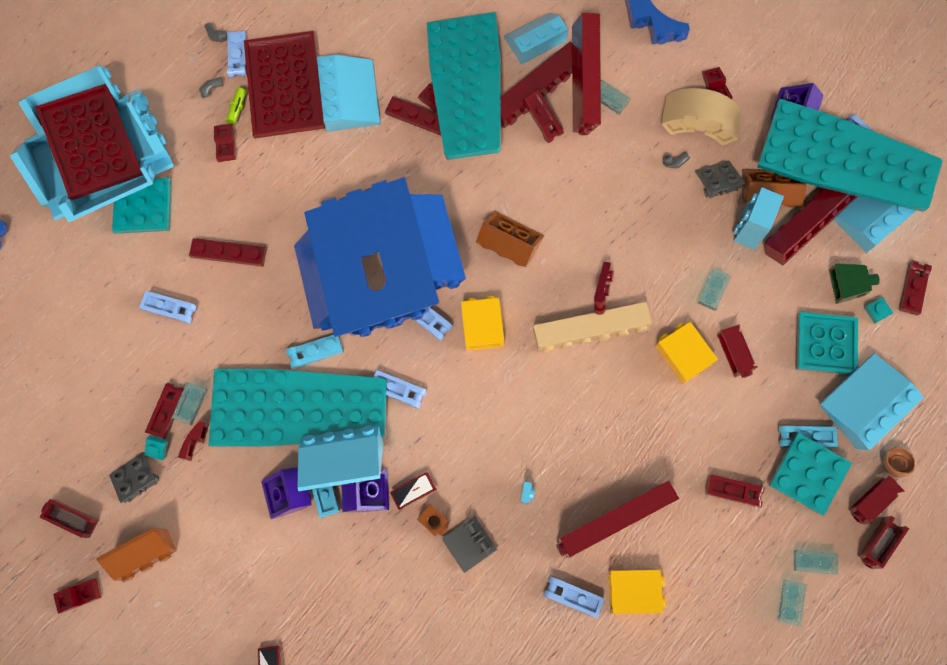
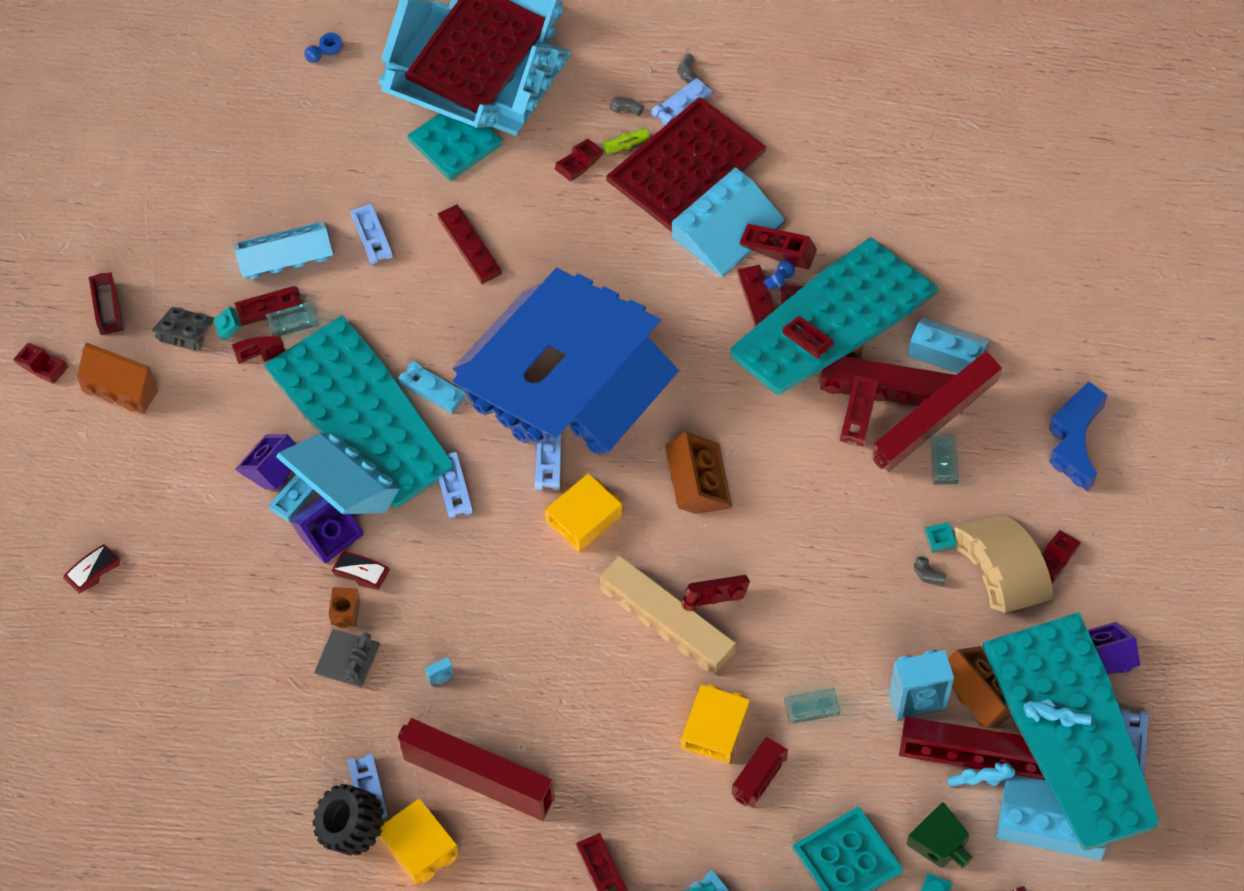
camera: 50 degrees right, 15 degrees down
(130, 371) = (283, 250): none -> medium azure slope
(390, 75) = (780, 245): none -> dark red slope
(412, 91) = (785, 270): none -> blue plate
(476, 108) = (805, 339): none -> dark red tile
(589, 641) = (363, 823): none -> black tyre
(658, 137) = (940, 537): none -> teal plate
(720, 179) = (945, 627): dark grey hinge -> none
(832, 226) = (990, 775): none -> medium azure animal
(833, 163) = (1047, 710): none -> medium azure animal

